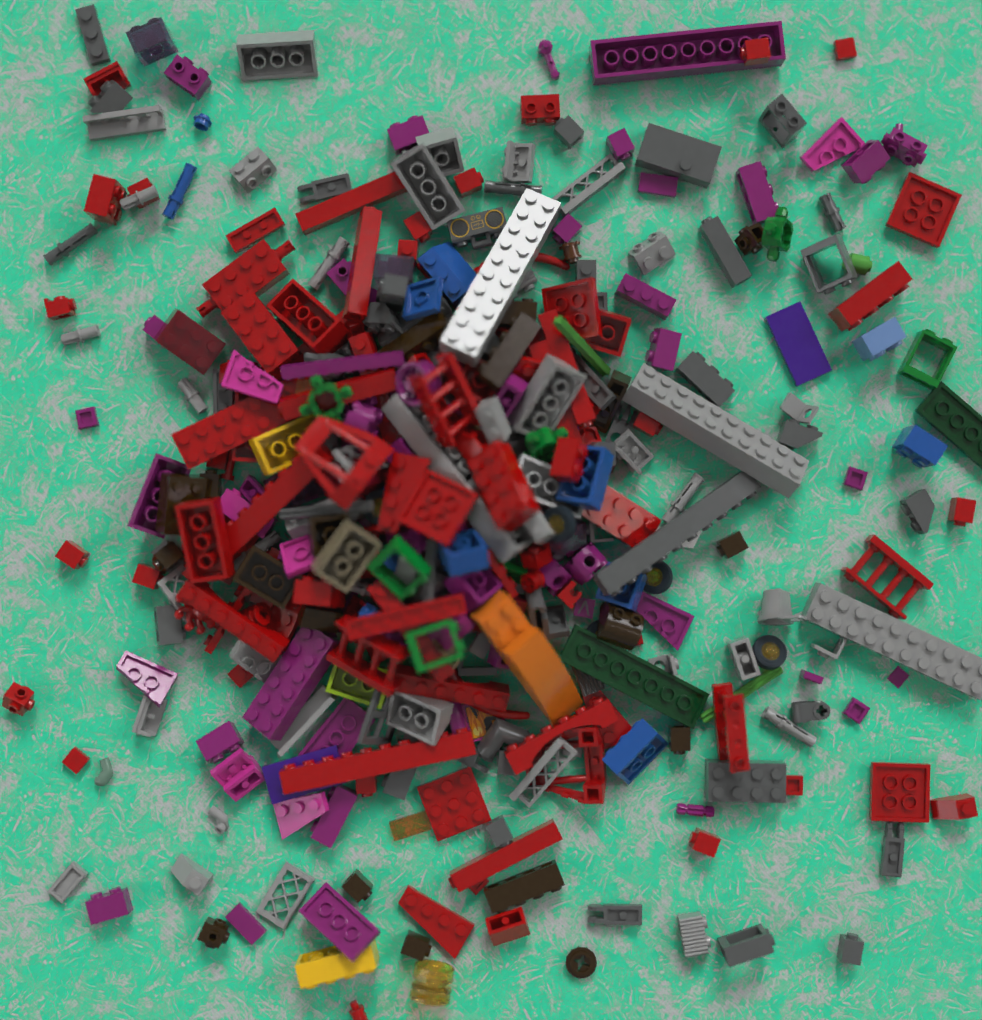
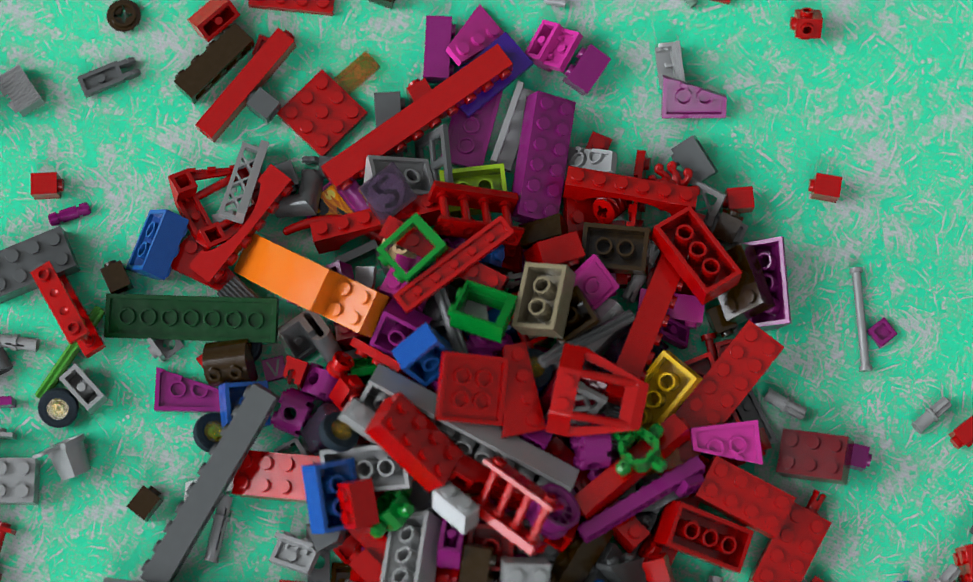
camera: 155 degrees right, 10 degrees down
(98, 436) = (860, 317): none -> light grey bar
(299, 359) = (689, 485): none -> magenta tile
(432, 704) = (387, 192): none -> clear purple slope

